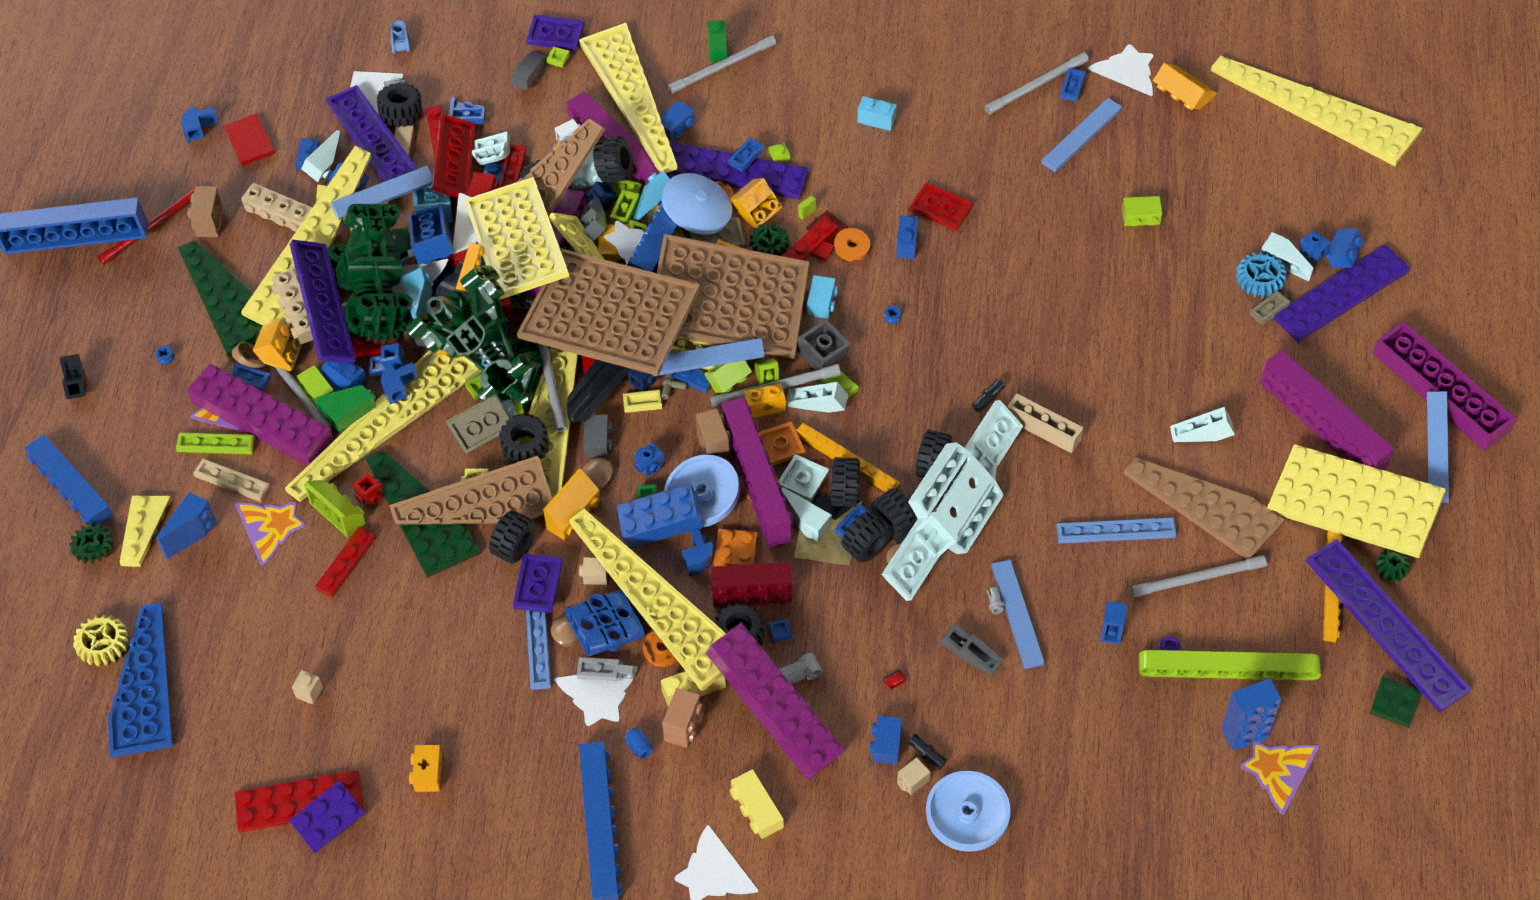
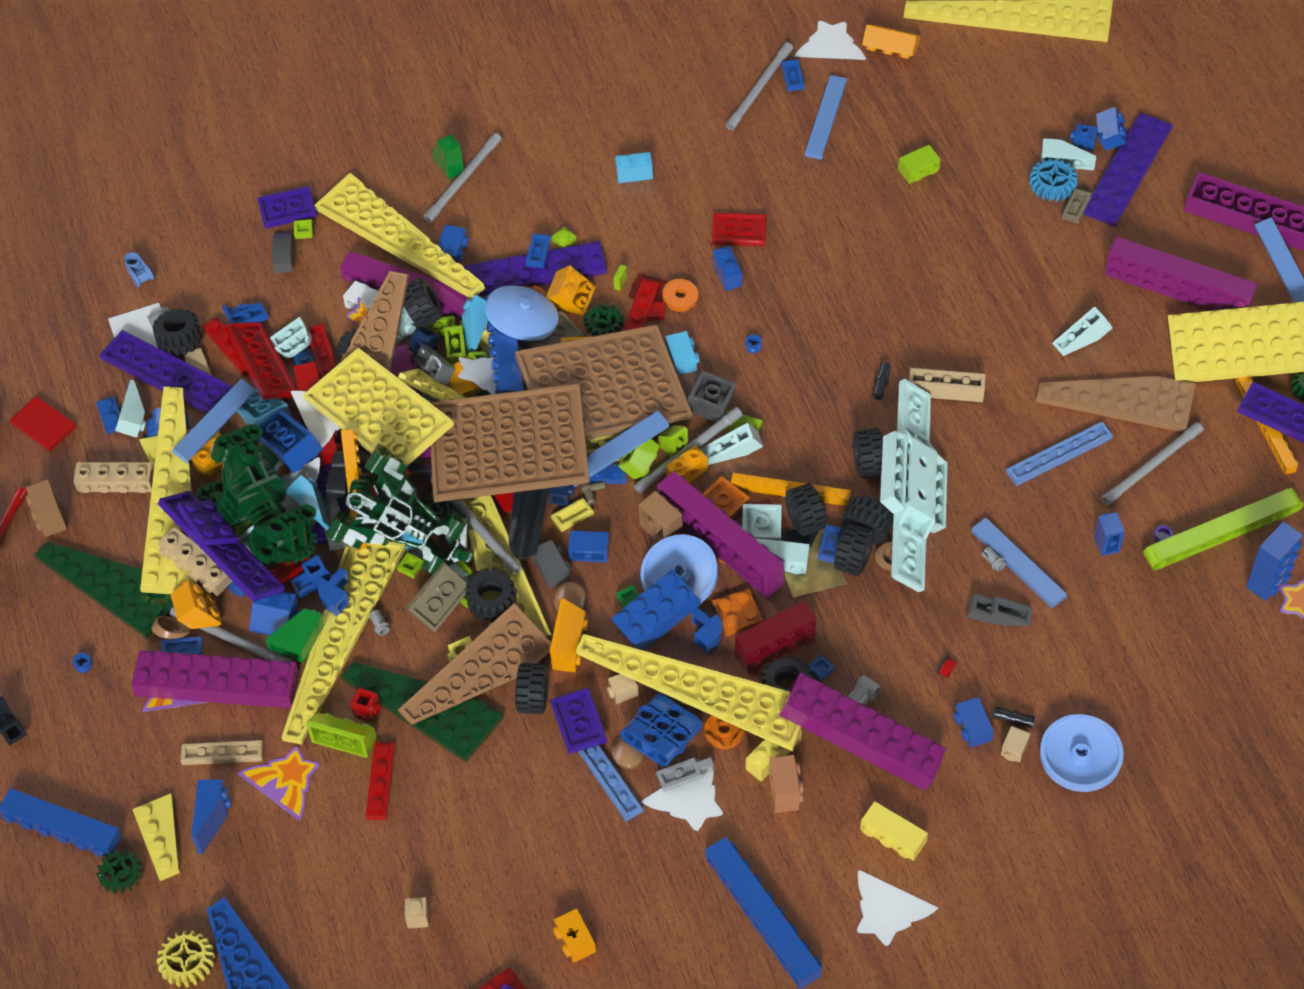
camera: 25 degrees left, 0 degrees up
(215, 443) = (184, 724): lime tile -> none
(314, 383) = (253, 628): lime hinge -> none
(320, 277) = (207, 522): none -> dark purple plate
(422, 429) = (381, 626): none -> light grey pin
(637, 433) = (589, 546): none -> blue brick
(639, 742) = (755, 824): blue brick -> none
(649, 460) = (613, 565): blue brick -> none

